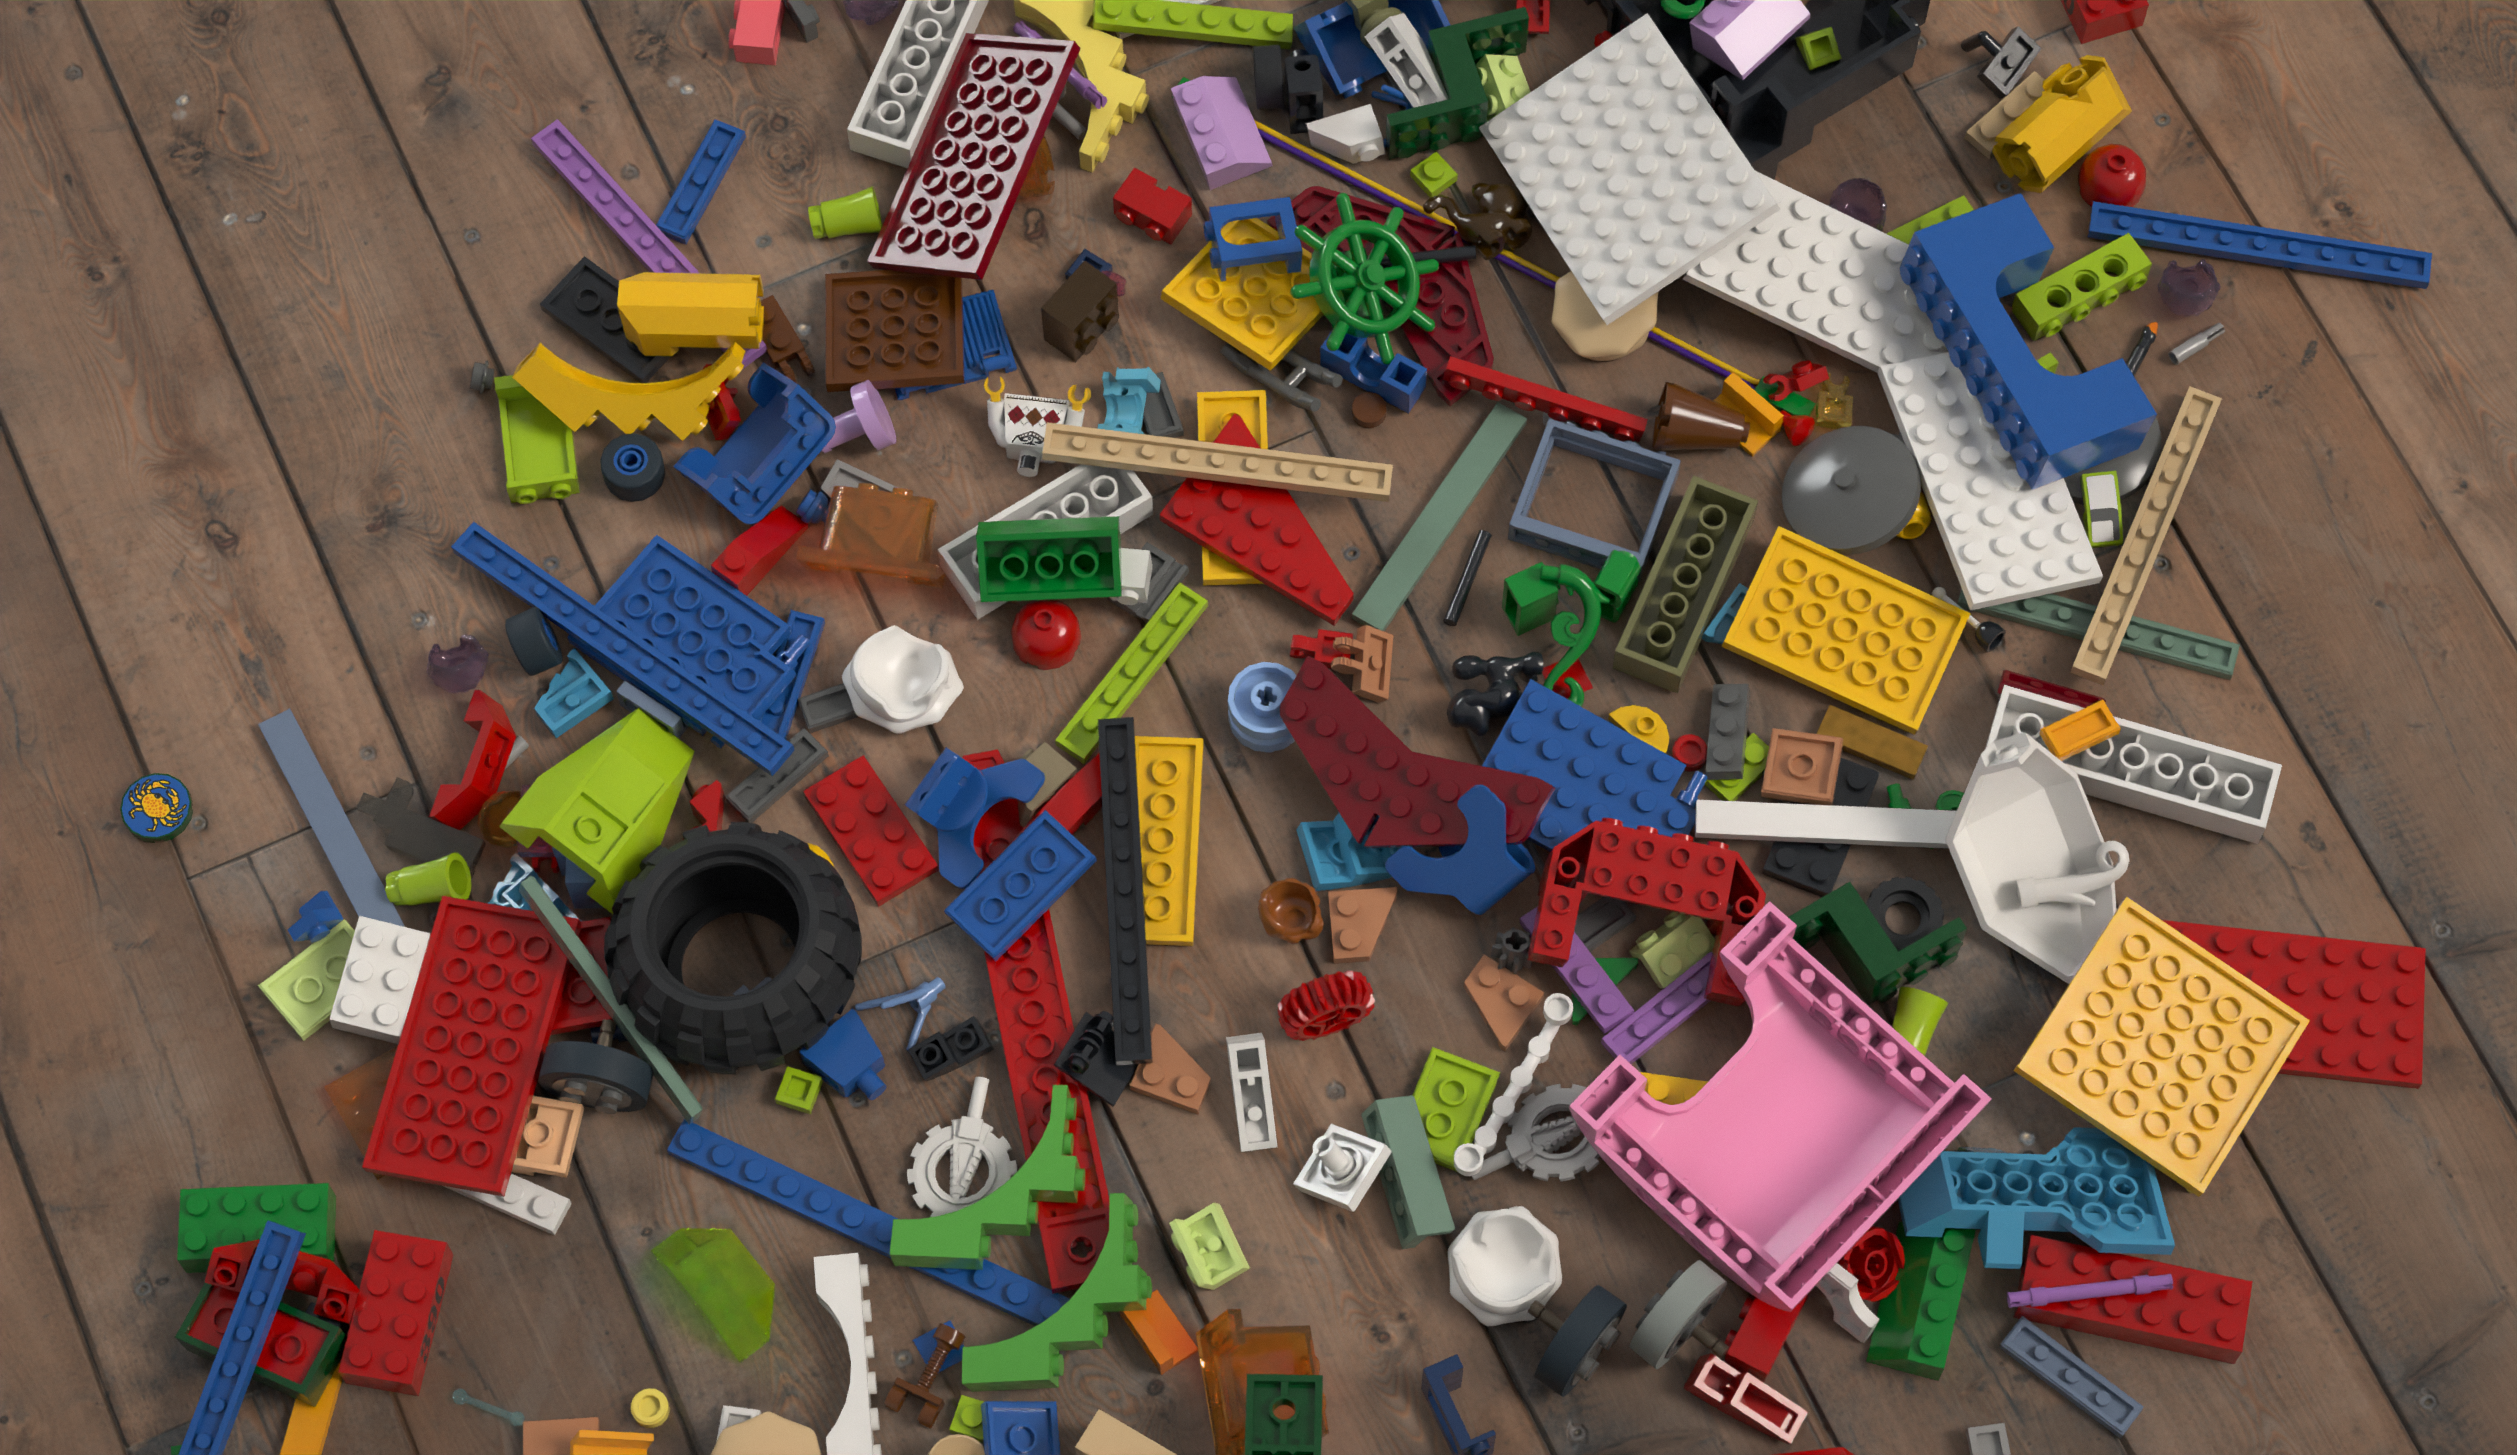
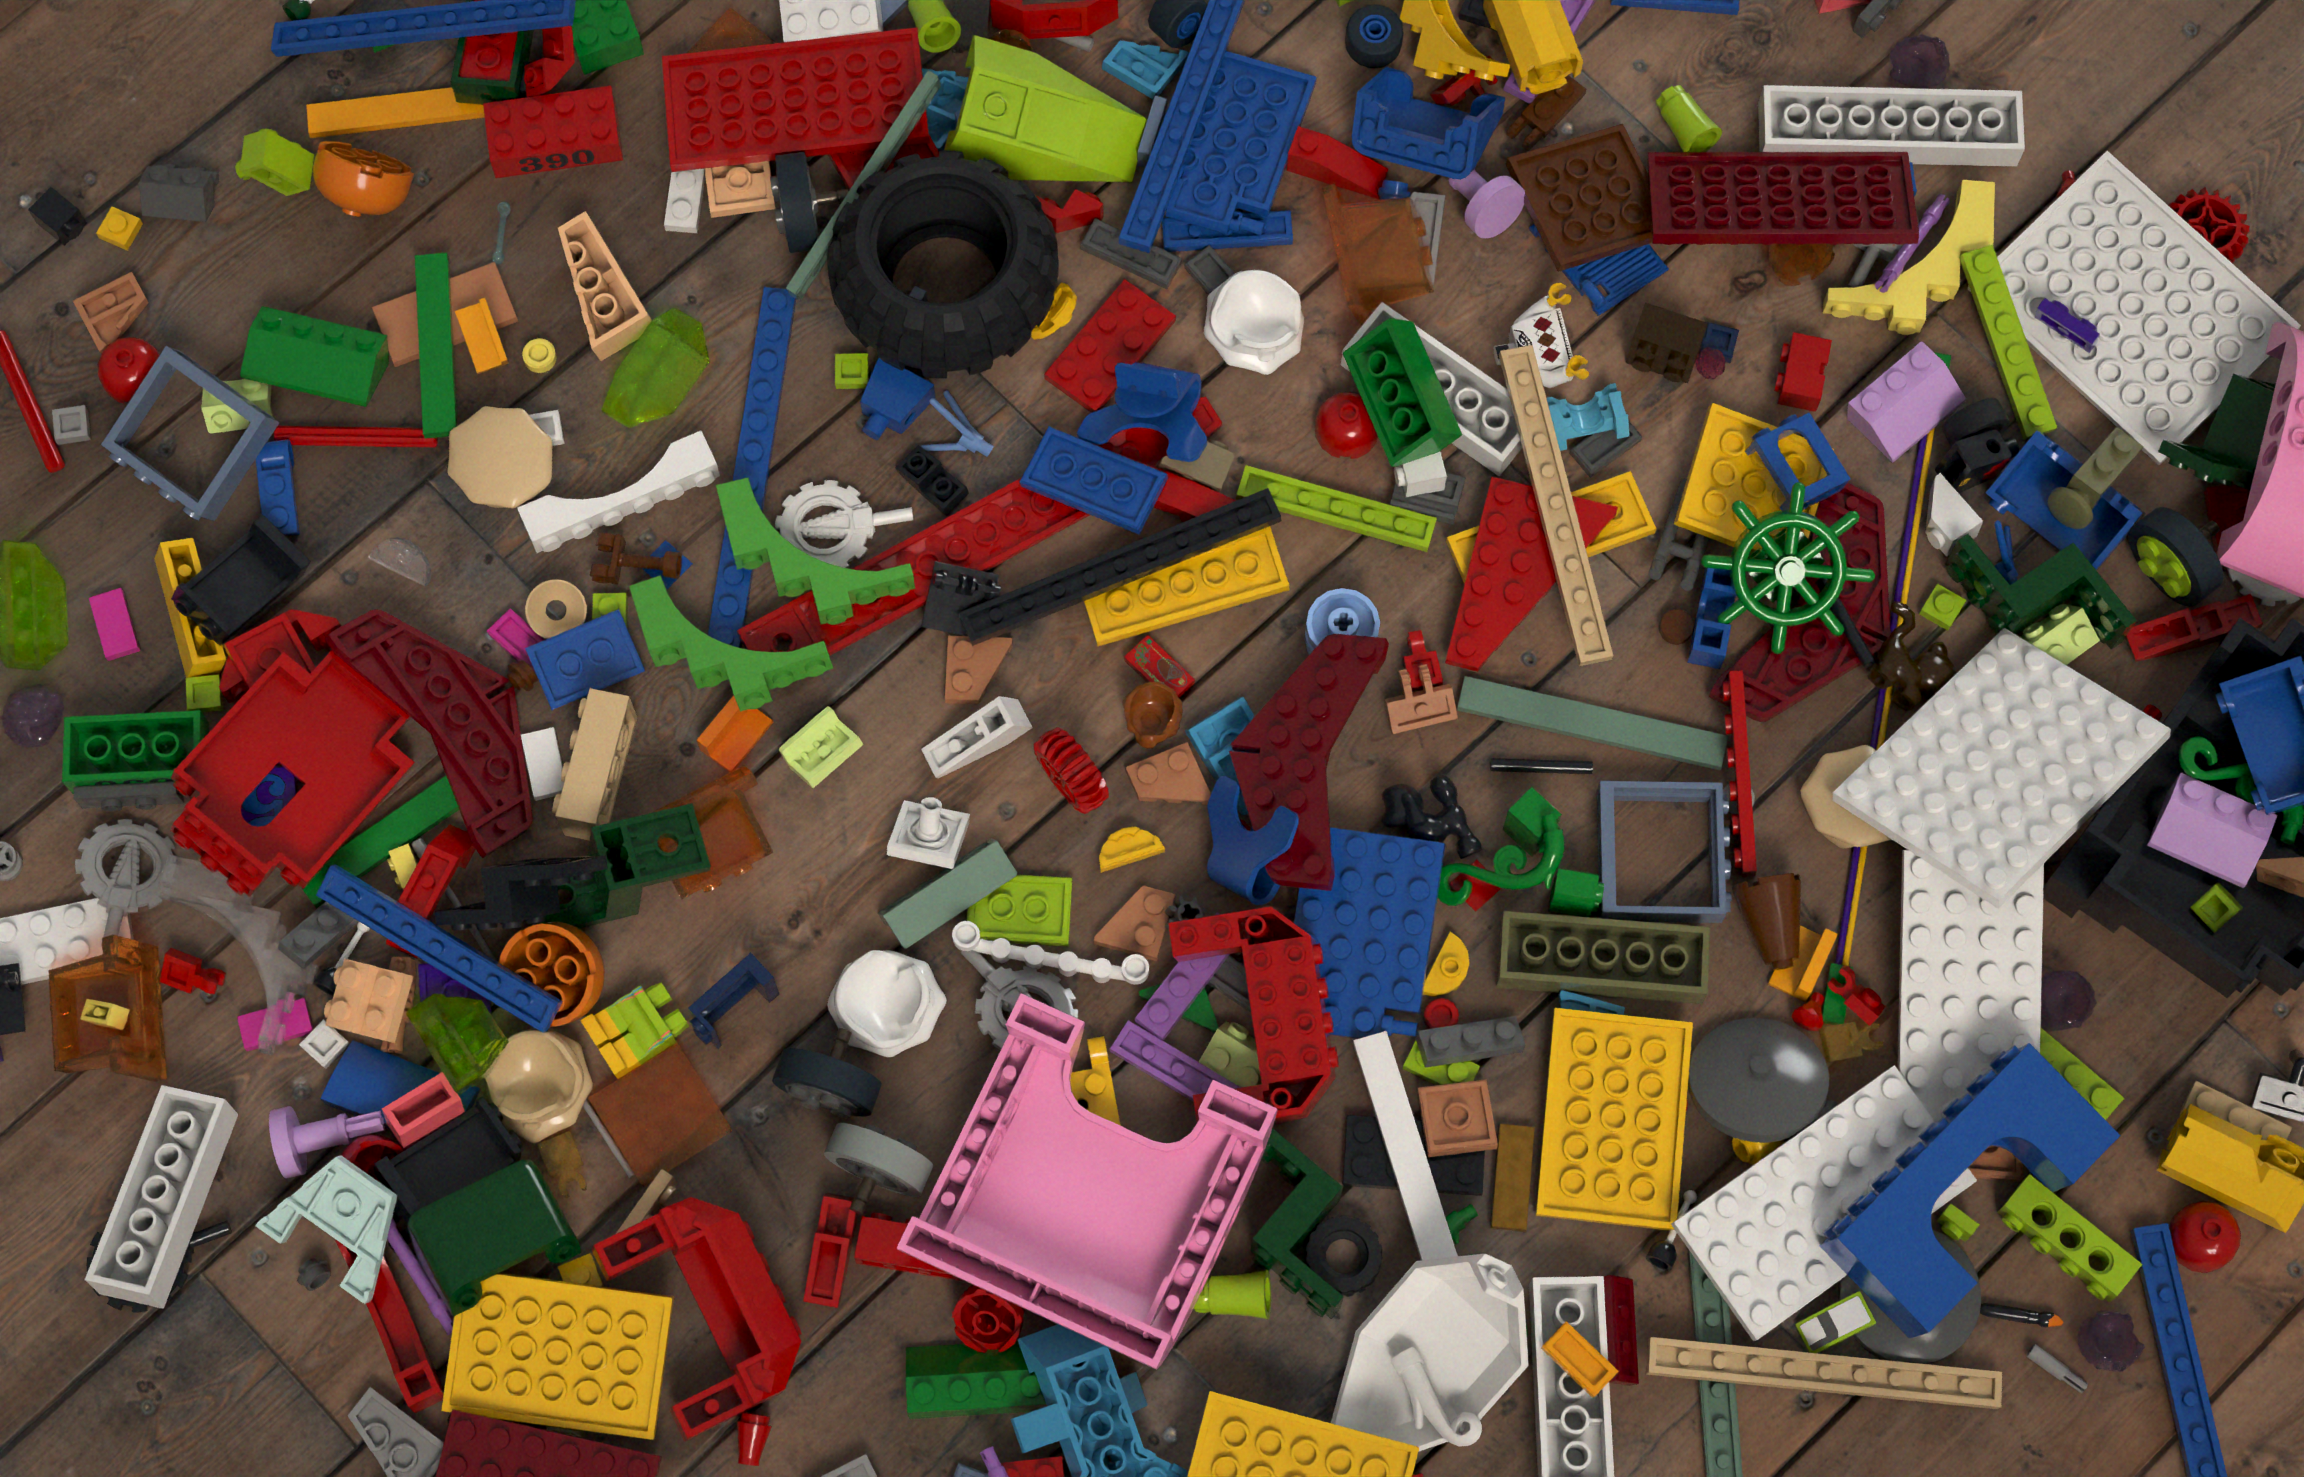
camera: 70 degrees right, 5 degrees up
(609, 1311) = (605, 295): none -> light nougat wedge
(1236, 895) = (1157, 665): none -> red tile
(1407, 60) = (2038, 536): white slope -> none
(1418, 983) = (1128, 847): none -> yellow plate
(1847, 1304) = (944, 1310): white tile -> none

